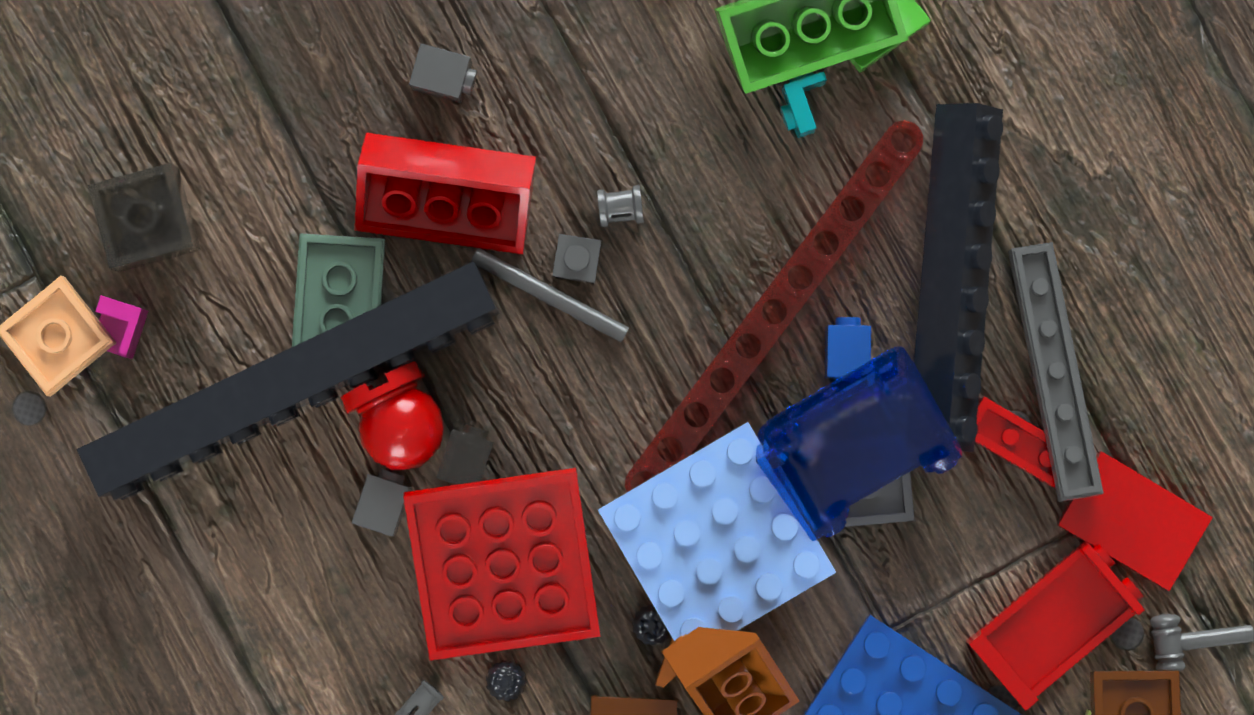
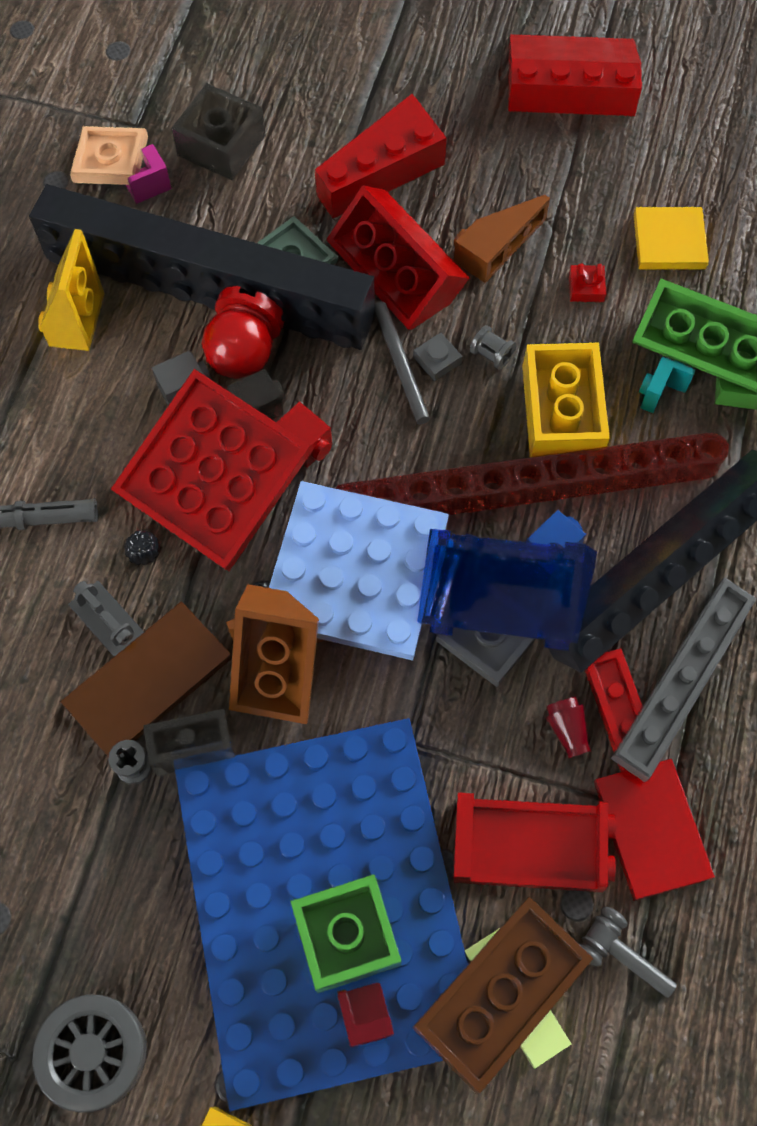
camera: 45 degrees right, 20 degrees down
(206, 528) = (73, 299): none -> yellow slope
(326, 90) = (383, 156): none -> red wedge
(442, 73) = (459, 199): dark grey brick -> none
(515, 89) = (498, 236): none -> dark orange slope
(542, 451) = (309, 428): none -> red brick
(638, 51) = (587, 283): none -> red tile
(737, 208) = (564, 398): none -> yellow brick
(998, 499) = (569, 725): none -> dark red cone

